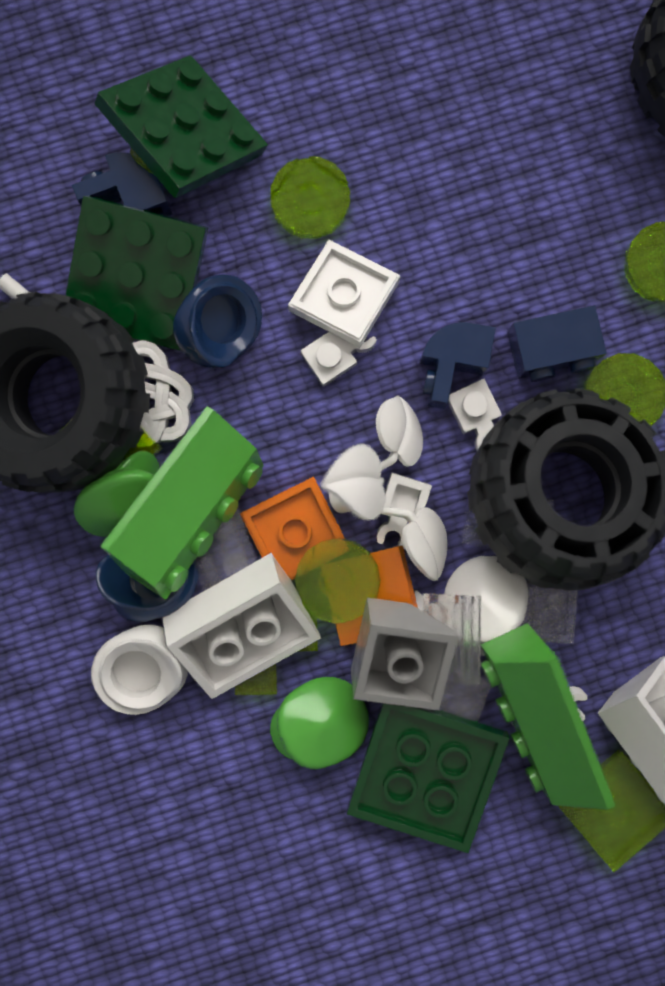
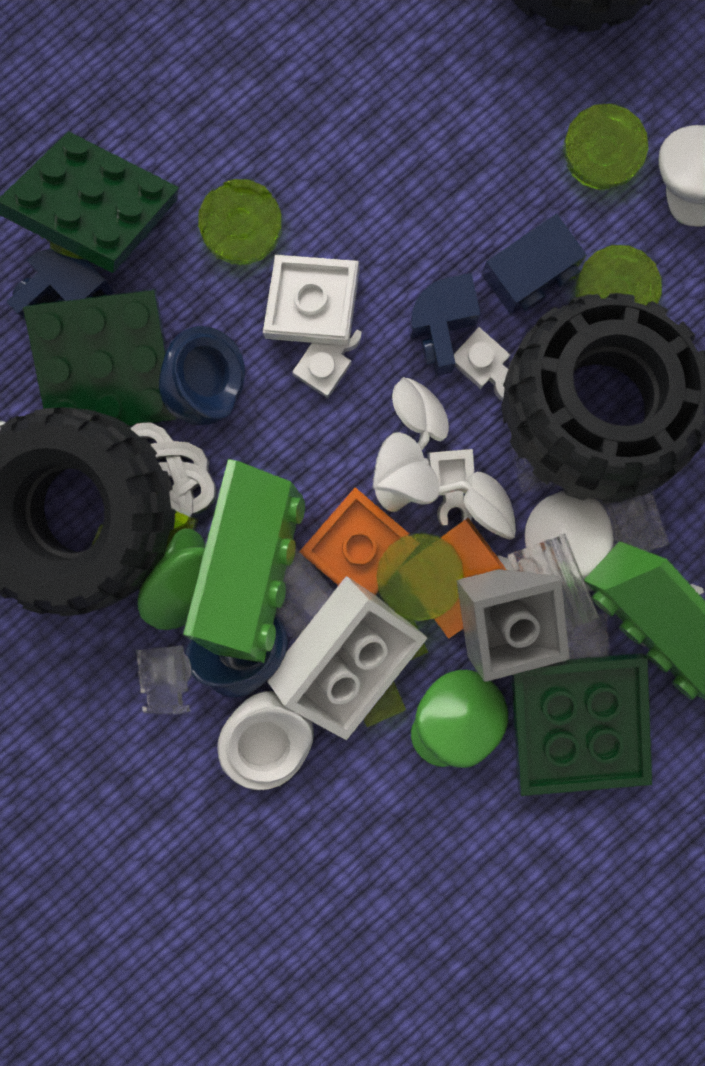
camera: 20 degrees left, 0 degrees up
(71, 576) = (164, 678): none -> clear plate

